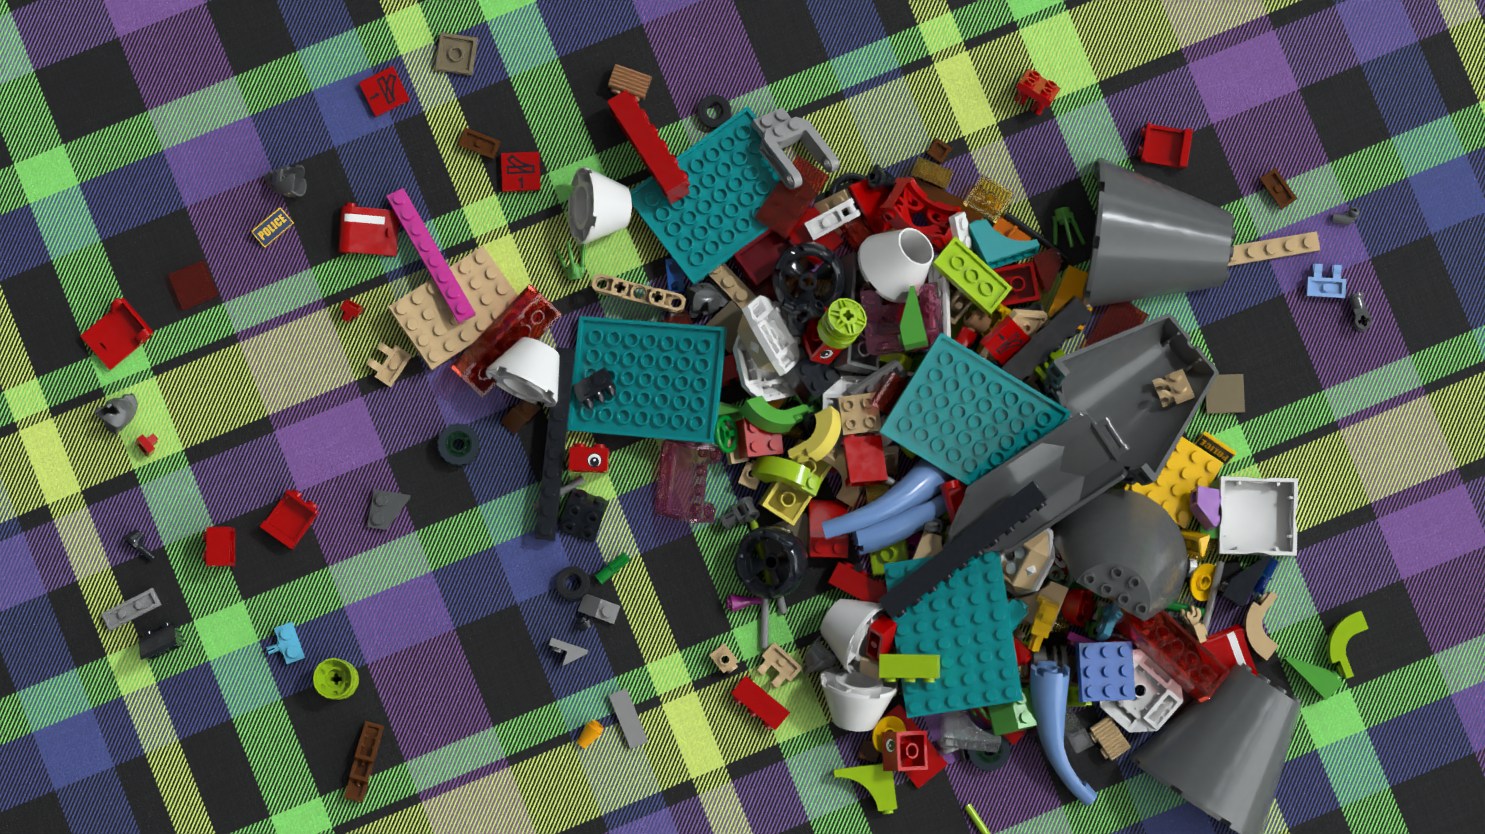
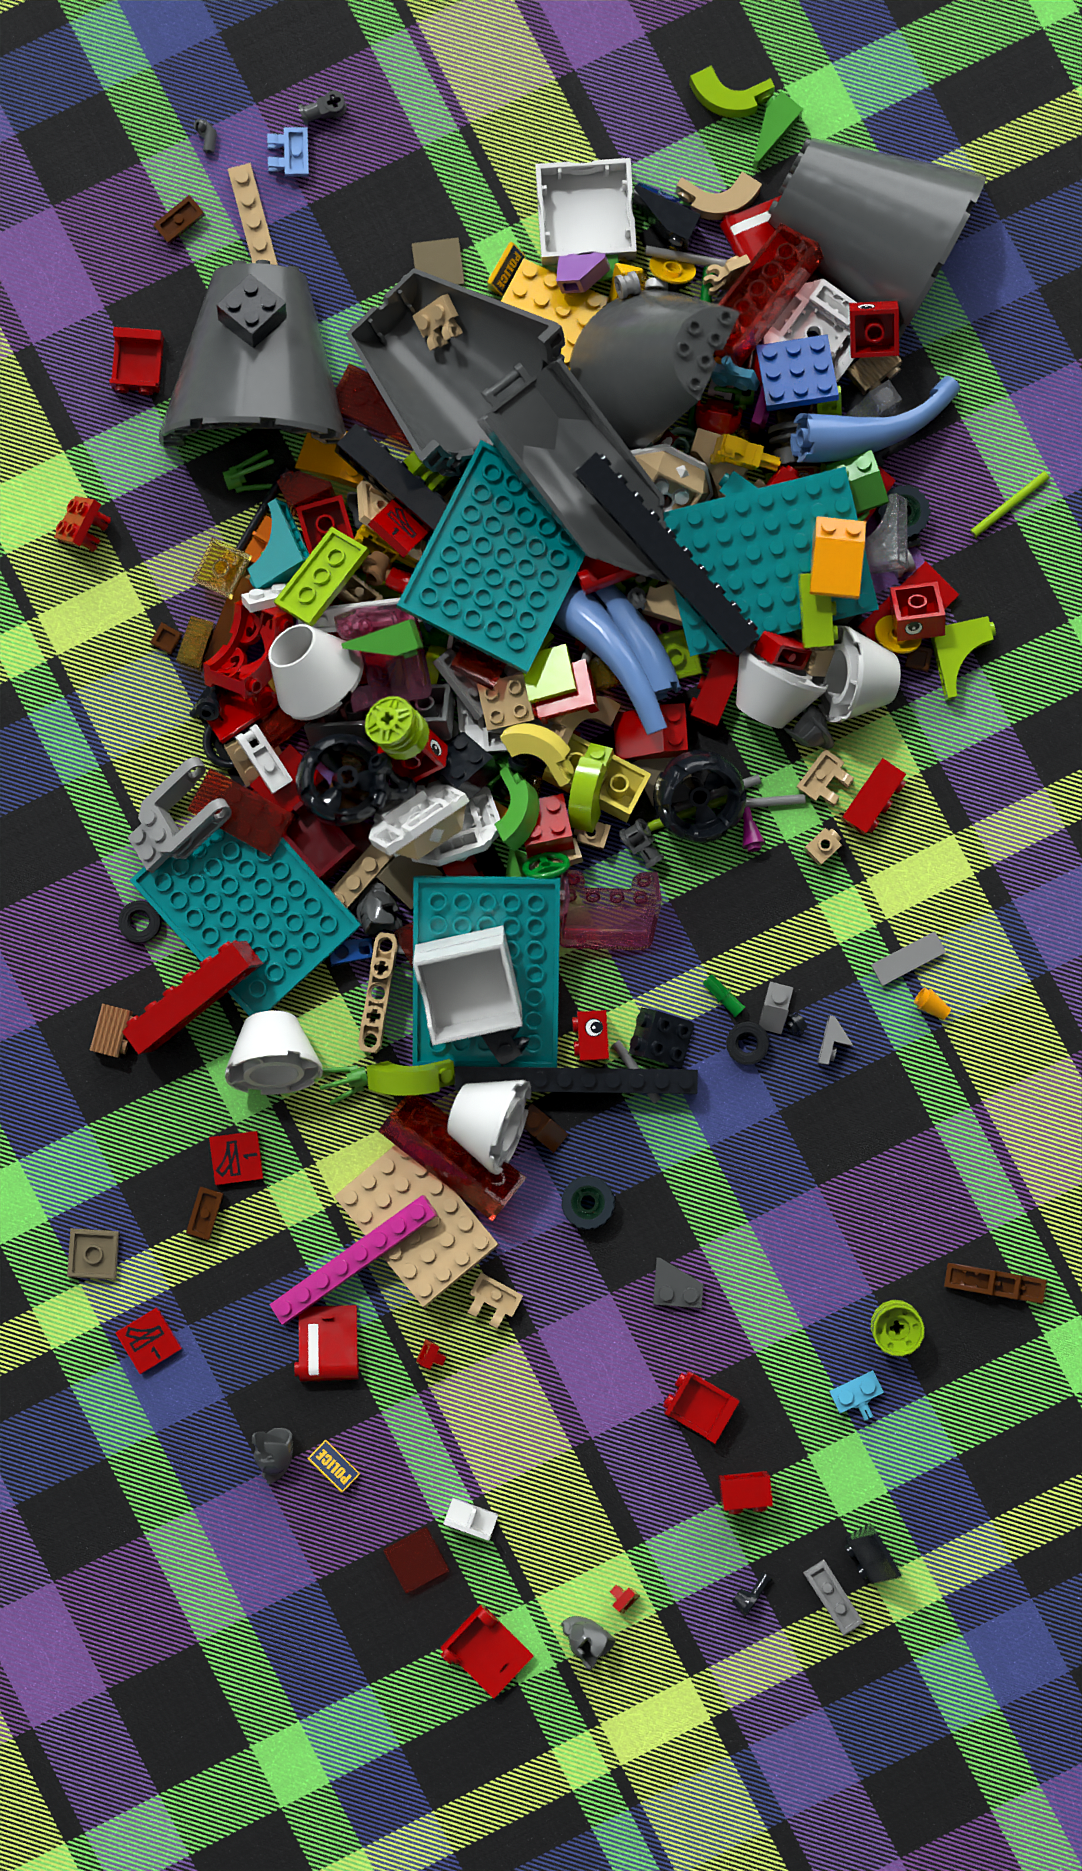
camera: 90 degrees left, 0 degrees up
(220, 330) = (470, 1519): none -> white panel
(567, 313) = (410, 1080): none -> lime arch
(635, 362) = (468, 985): none -> white piece
(877, 450) = (550, 674): none -> tile
(947, 685) = (837, 557): none -> light orange slope
(1135, 737) = (874, 329): none -> red brick
(1188, 238) = (251, 311): none -> brick
(1189, 542) = (627, 285): none -> light grey wheel

